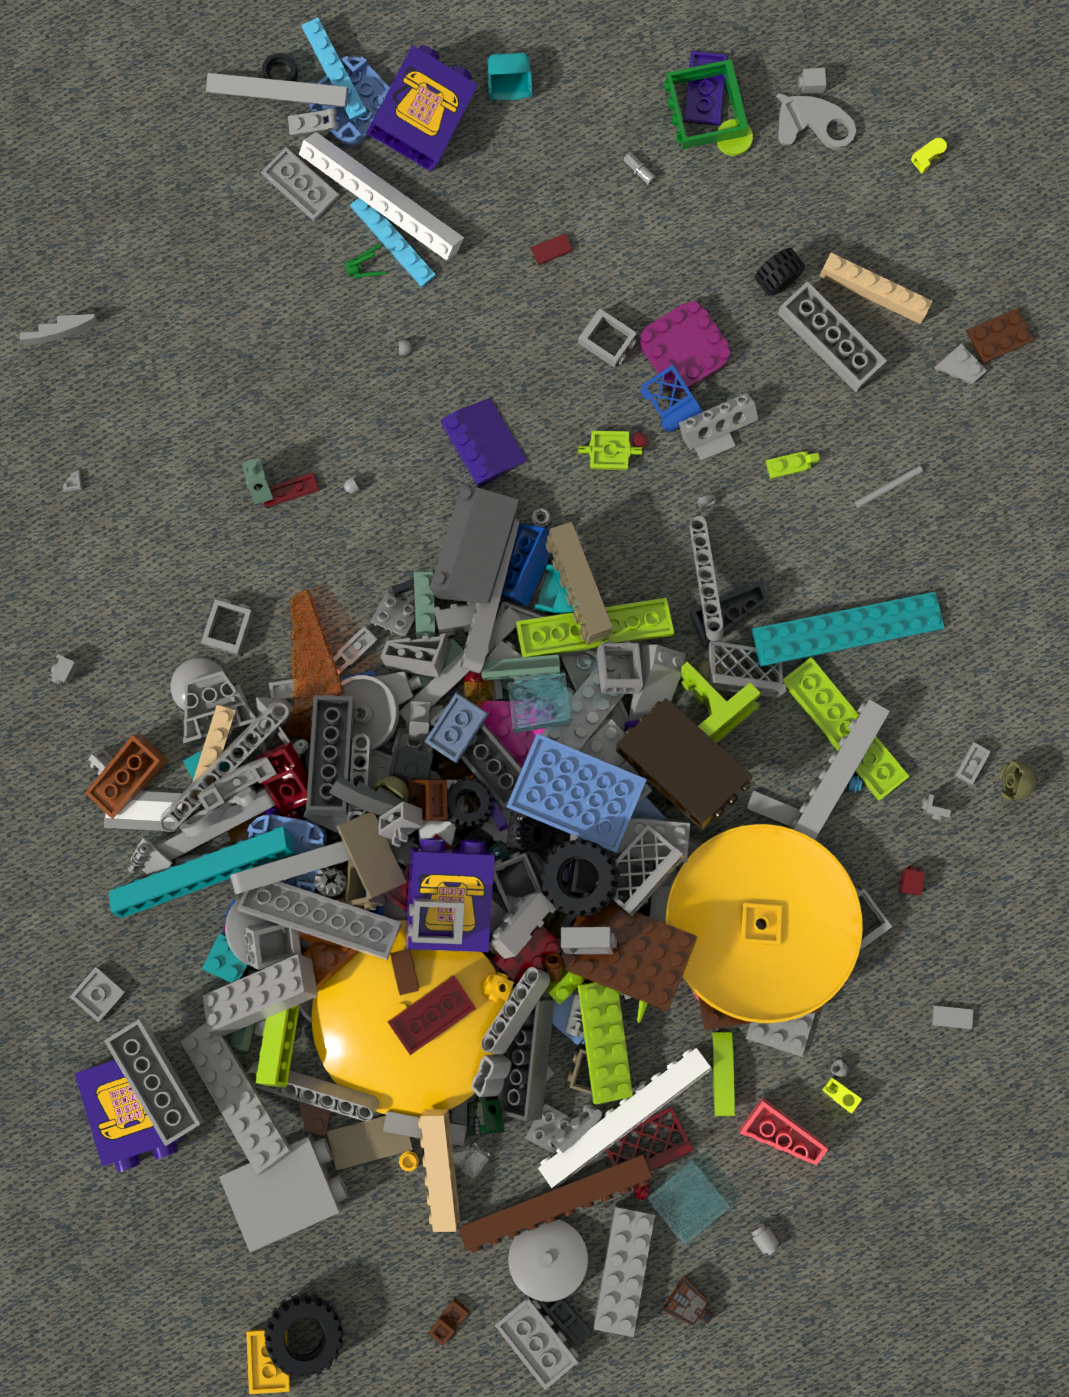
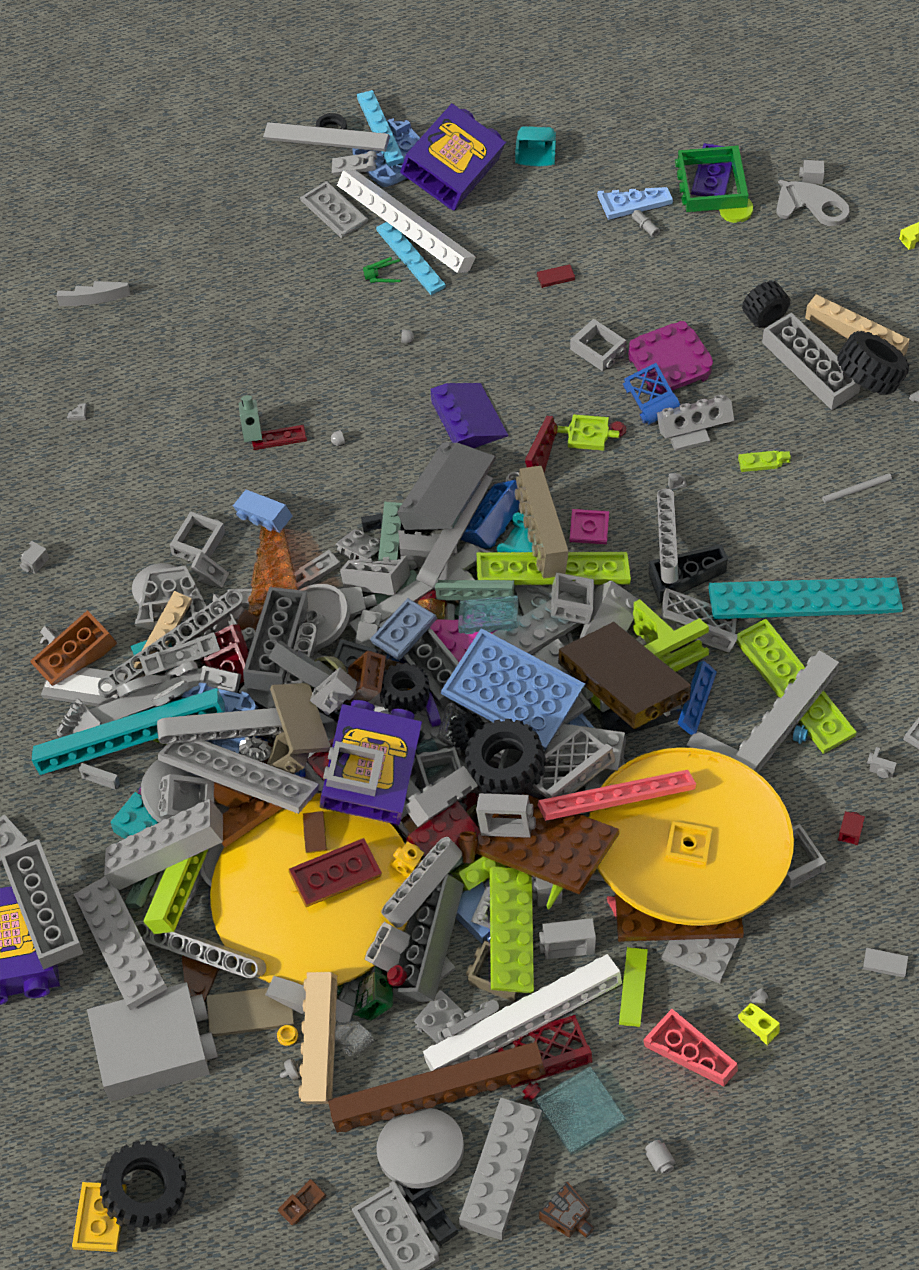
camera: 10 degrees right, 25 degrees down
(180, 913) = (99, 776): none -> light grey tile
(235, 827) = (171, 692): none -> light grey tile
(246, 666) = (209, 571): none -> light grey slope
(282, 805) = (220, 679): none -> light grey plate
(288, 591) = (262, 511): none -> medium blue brick
(419, 1197) = (291, 1069): none -> light grey tile
(503, 1101) = (396, 975): none -> dark red plate
(564, 481) = (542, 445): none -> dark red wing
(617, 142) = (625, 203): none -> light blue wing
(623, 564) = (589, 526): none -> dark pink tile
(658, 1037) = (567, 939): none -> light grey window
(690, 895) = (616, 794): none -> coral plate
(753, 750) = (700, 690): none -> blue plate
(898, 340) = (873, 362): none -> black tyre

